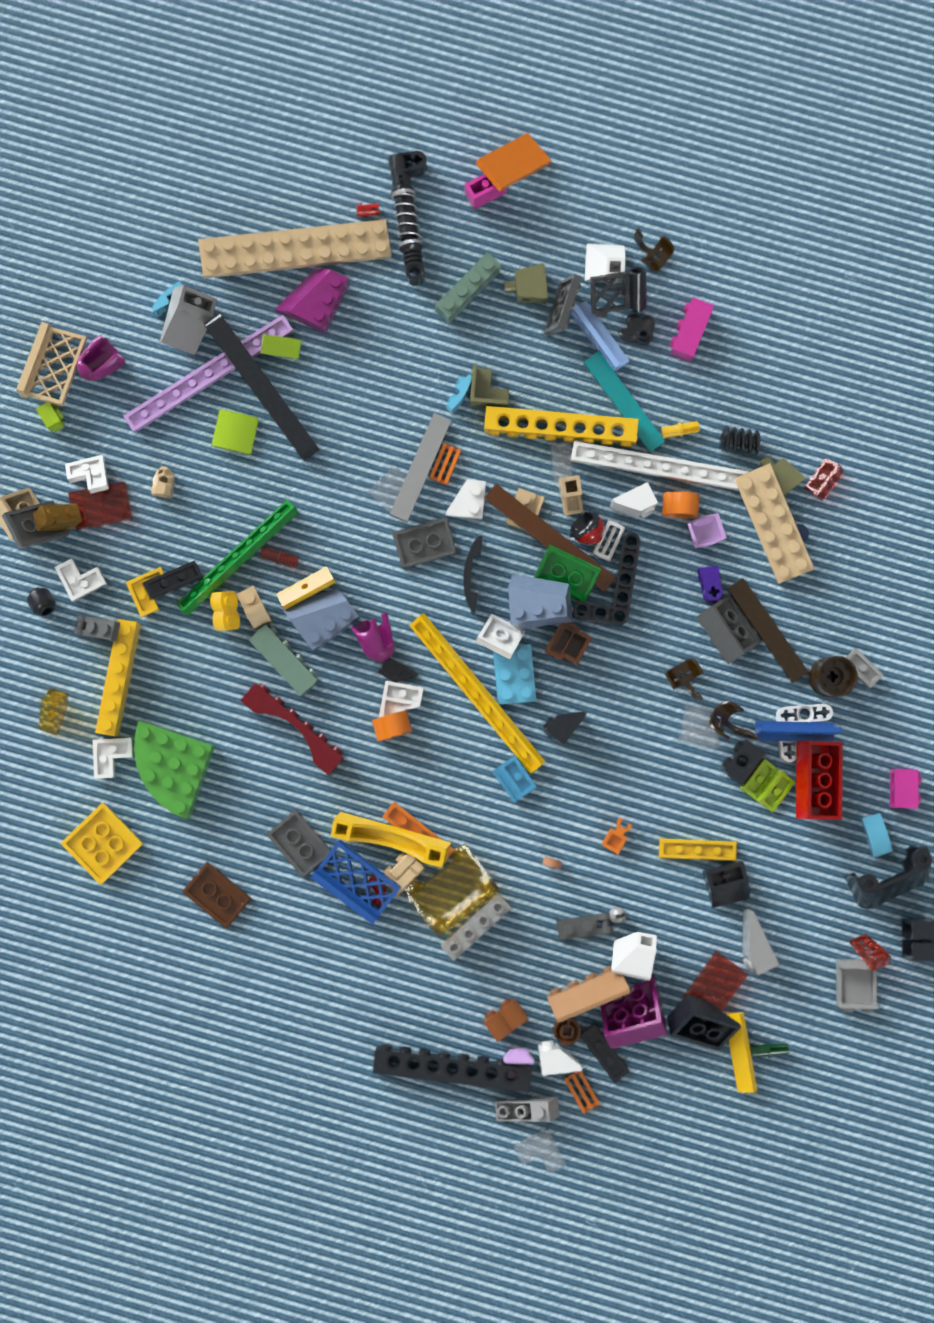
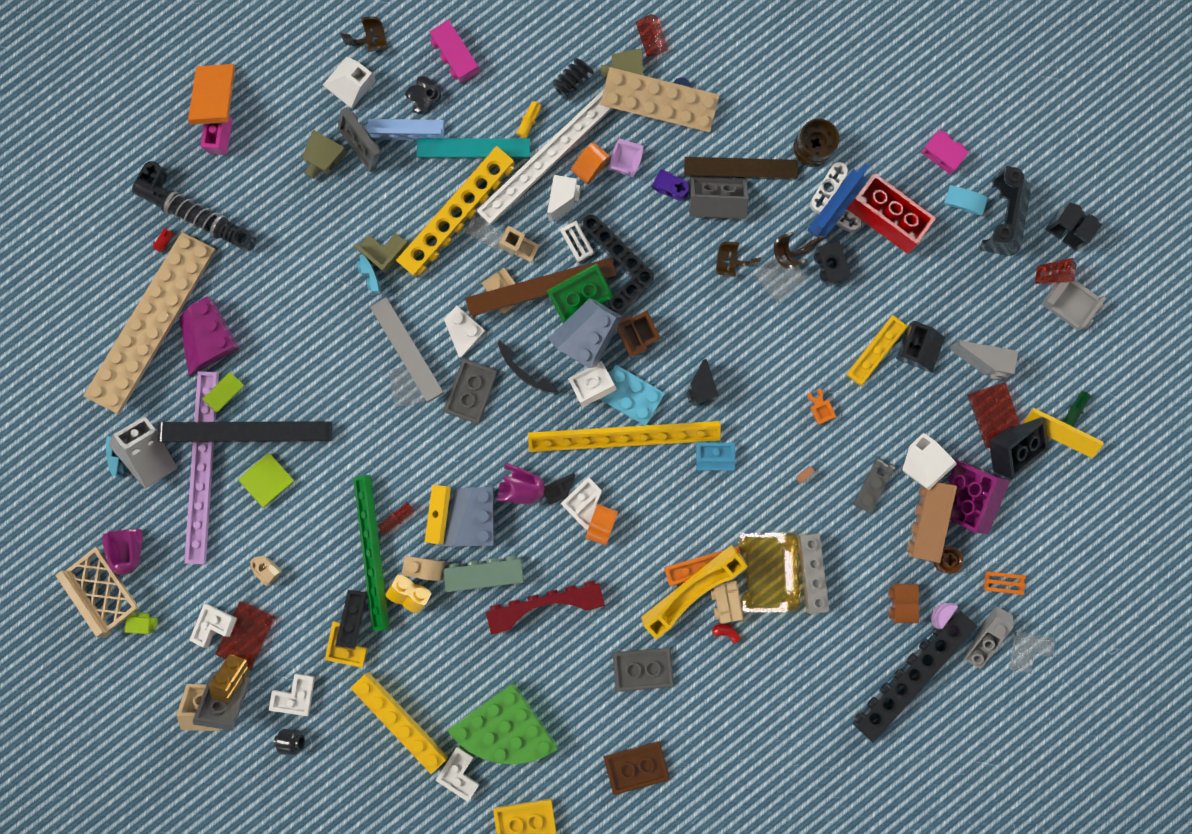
camera: 45 degrees left, 0 degrees up
(53, 711) = (387, 796): clear yellow slope -> none
(97, 628) = (345, 710): dark grey plate -> none
(349, 895) = (708, 660): blue fence -> none
(451, 449) = (410, 314): orange tile -> none
(467, 288) = (287, 205): sand green brick -> none
(556, 1059) = (966, 585): white slope -> none
(587, 529) = (555, 251): black hair -> none
(603, 1053) = (986, 543): black tile -> none
(617, 911) = (880, 452): light grey hinge -> none
(634, 291) = (388, 73): black piece -> none
(767, 785) = (865, 257): lime slope -> none
(867, 672) = (831, 112): light grey plate -> none

